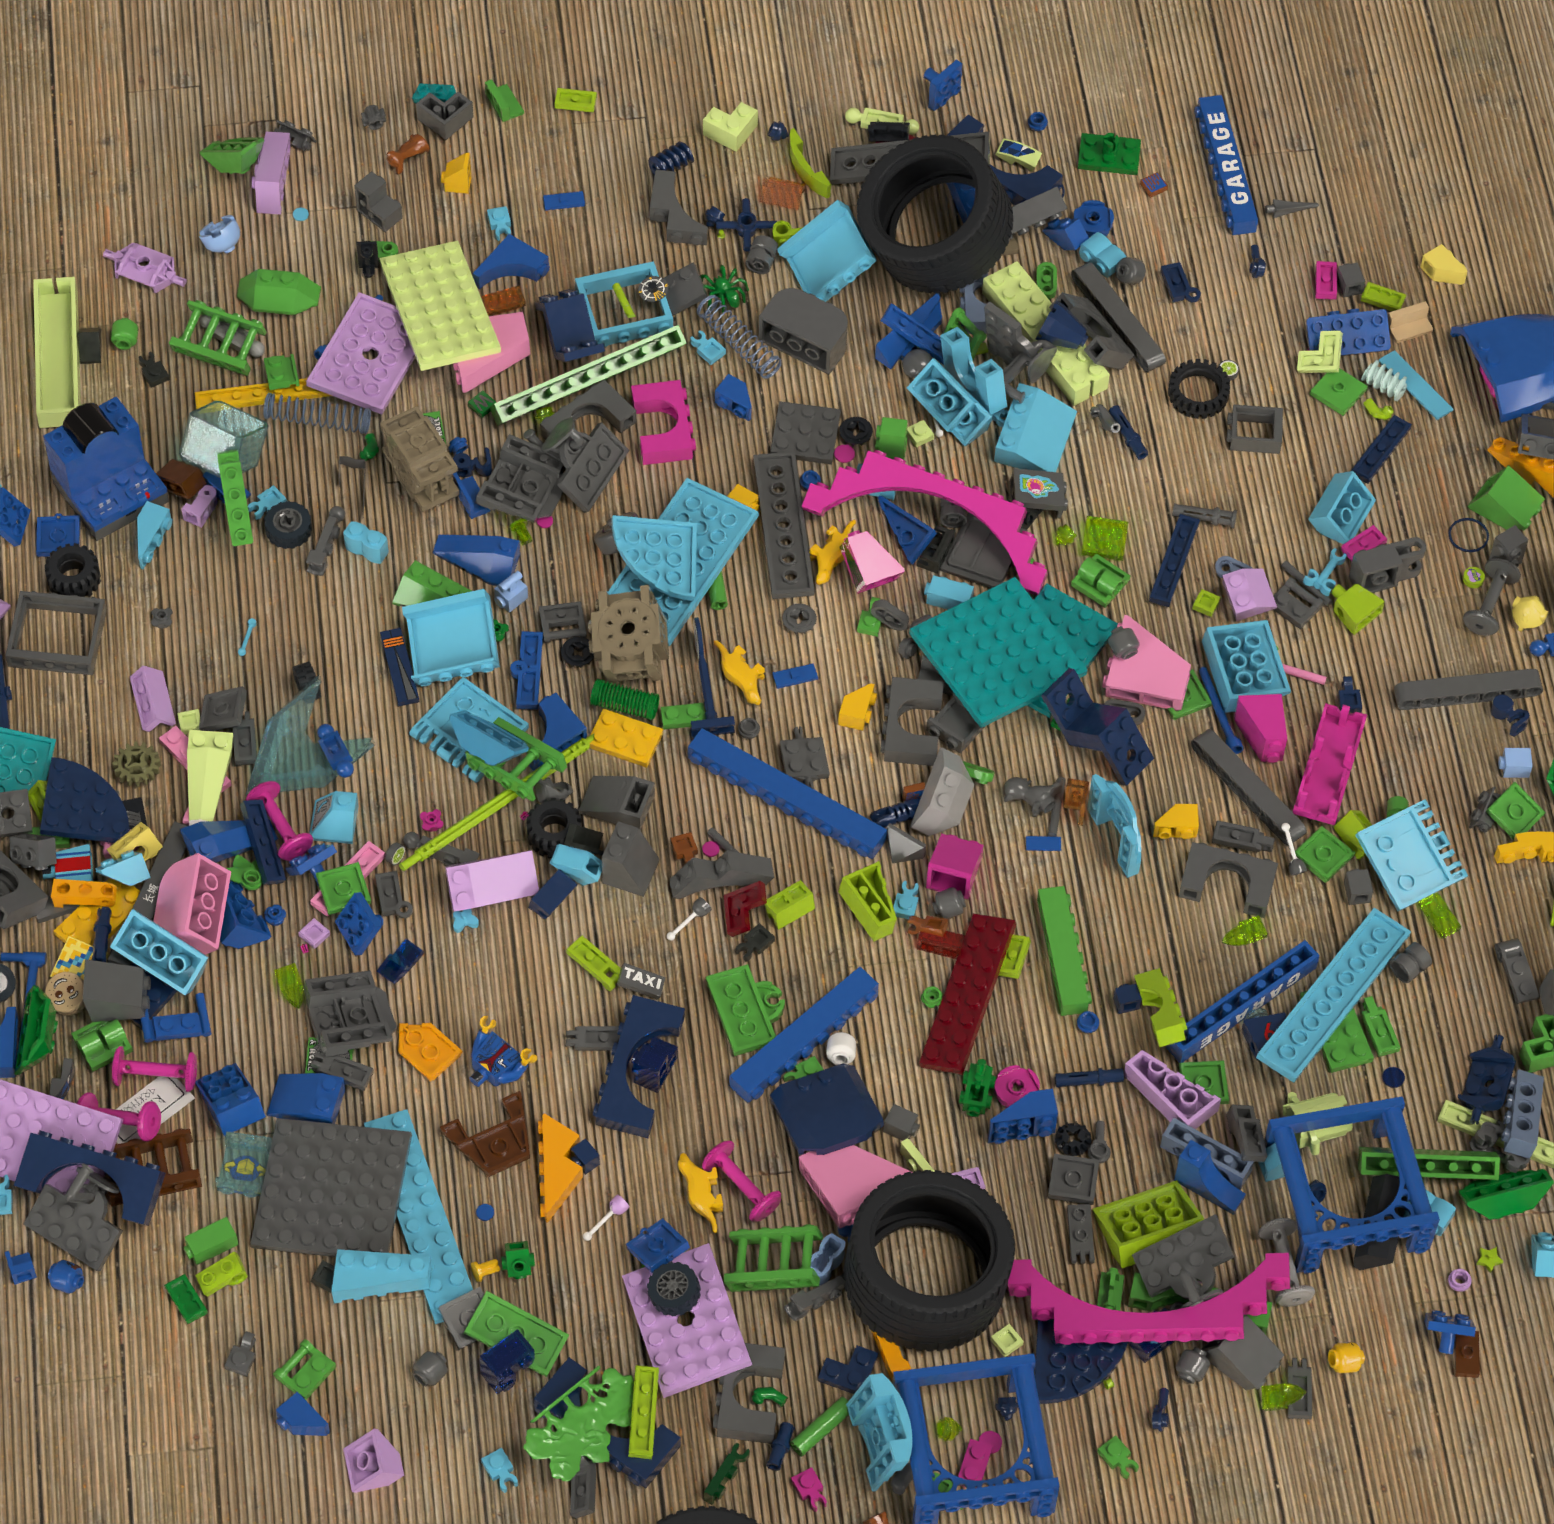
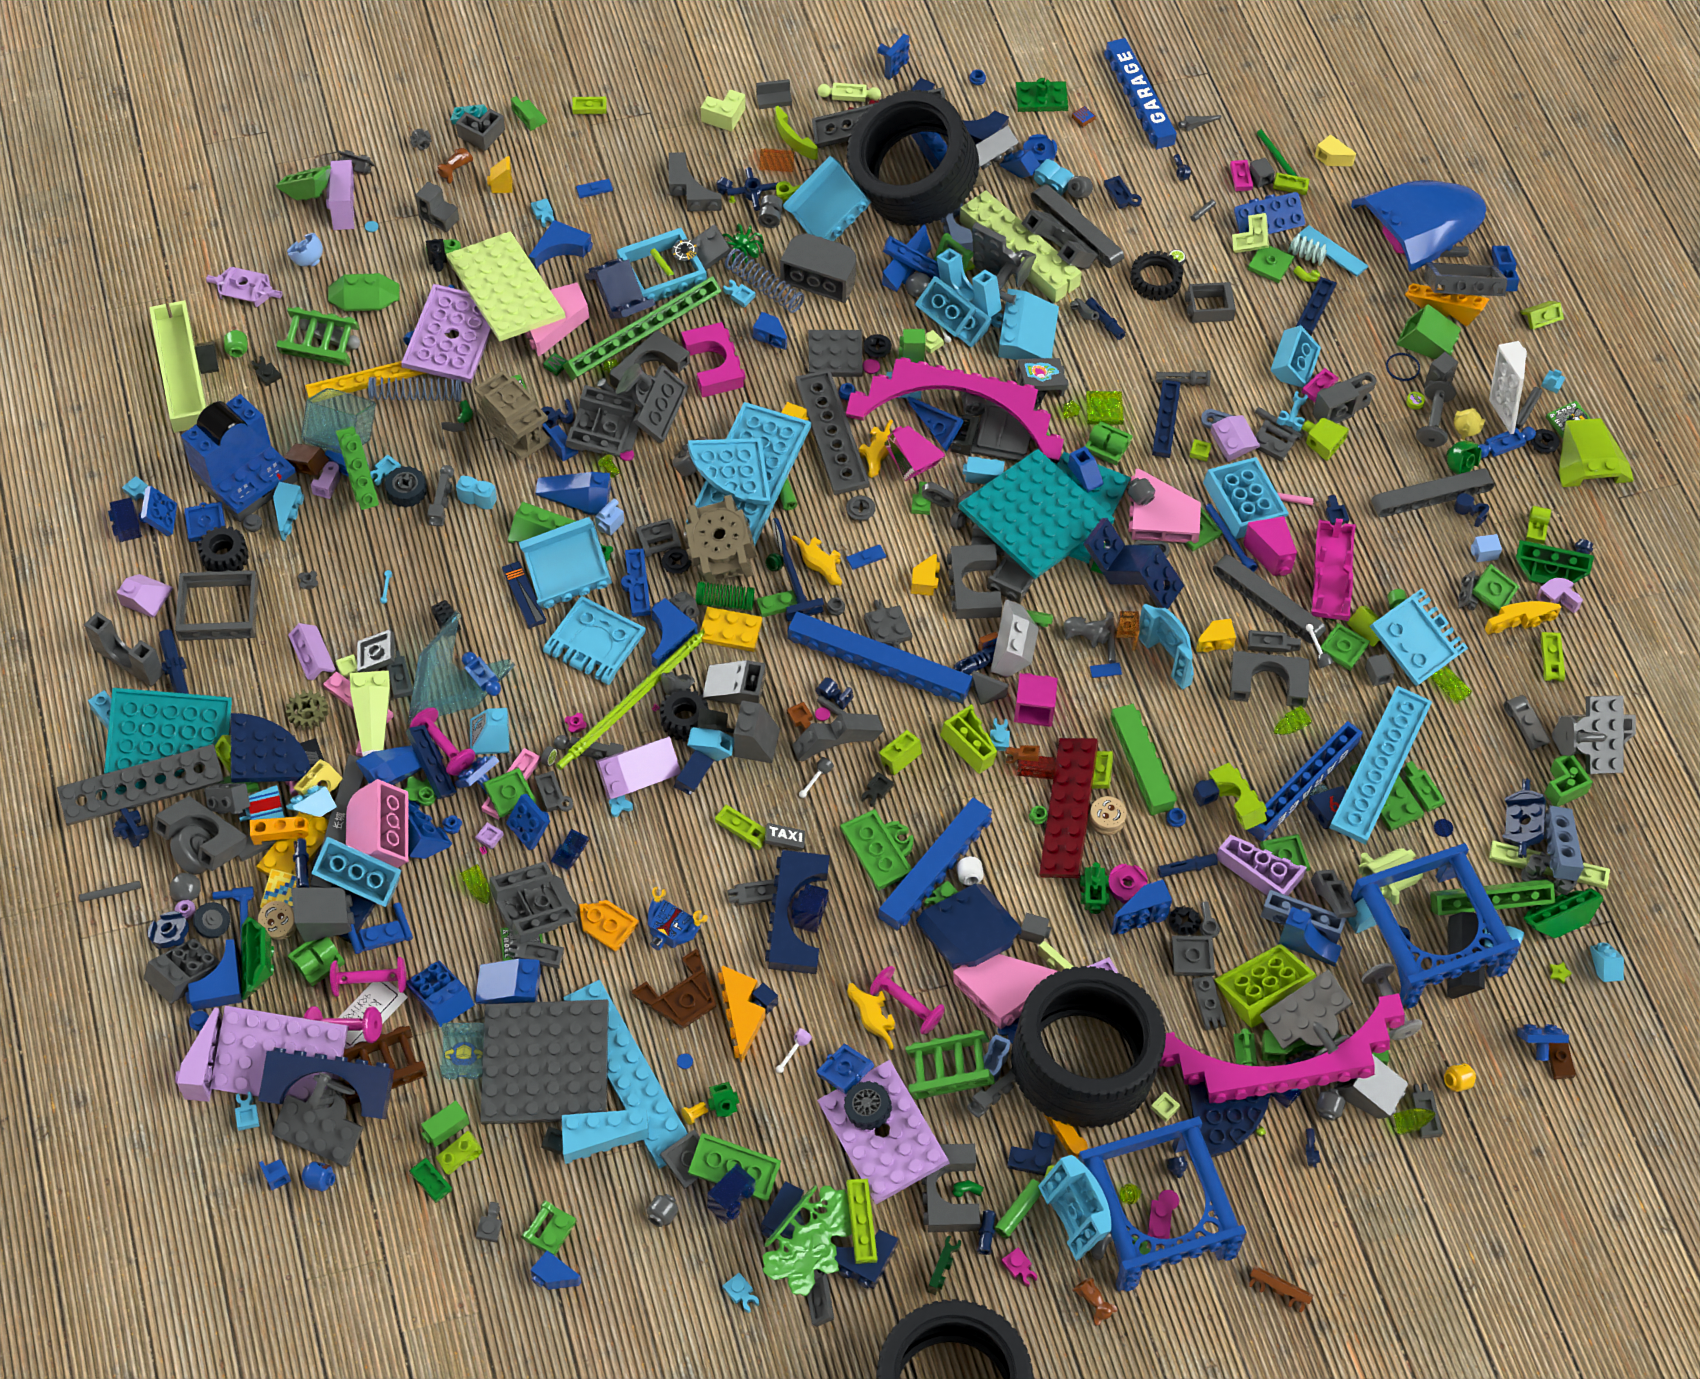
camera: 10 degrees left, 0 degrees up
(61, 1086) = (285, 1004): dark grey slope -> none
(110, 543) = (252, 522): none -> dark grey plate
(281, 372) = (377, 358): bright green plate -> none
(372, 1462) = (625, 1304): lavender slope -> none
(458, 445) = (542, 400): blue plate -> none
(486, 739) = (613, 646): dark azure wedge -> none
(503, 300) = (559, 275): clear orange plate -> none
(537, 751) = (642, 643): bright green fence -> none
(579, 703) = (686, 604): none -> dark grey bracket
(671, 158) = (680, 142): dark blue piece -> none
(689, 667) = (774, 562): none -> dark green plate
(723, 822) = (829, 689): none -> dark blue leg
(738, 905) = (856, 758): dark red plate -> none
(777, 131) = (764, 110): dark blue plate -> none
(794, 112) = (773, 94): none -> dark grey panel
(888, 131) = (856, 99): black hinge -> none
(949, 903) = (1037, 732): dark grey head -> none
(1010, 1008) = (1107, 815): none -> tan head
(1014, 151) = (968, 104): yellowish green slope -> none
(1049, 281) = (1014, 203): bright green plate -> none
(1063, 328) = (1037, 238): dark blue cone -> none
(1064, 608) = (1085, 469): none -> blue slope
(1117, 1454) = (1280, 1194): bright green plate -> none
(1272, 316) = (1203, 210): none -> dark grey wheel
(1374, 258) = (1275, 152): none -> green bar
(1409, 322) = (1317, 200): tan panel -> none
(1410, 962) = (1437, 727): dark grey wheel -> none
(1459, 1274) = (1539, 989): lavender plate -> none
(1513, 652) = (1463, 457): none -> green cylinder

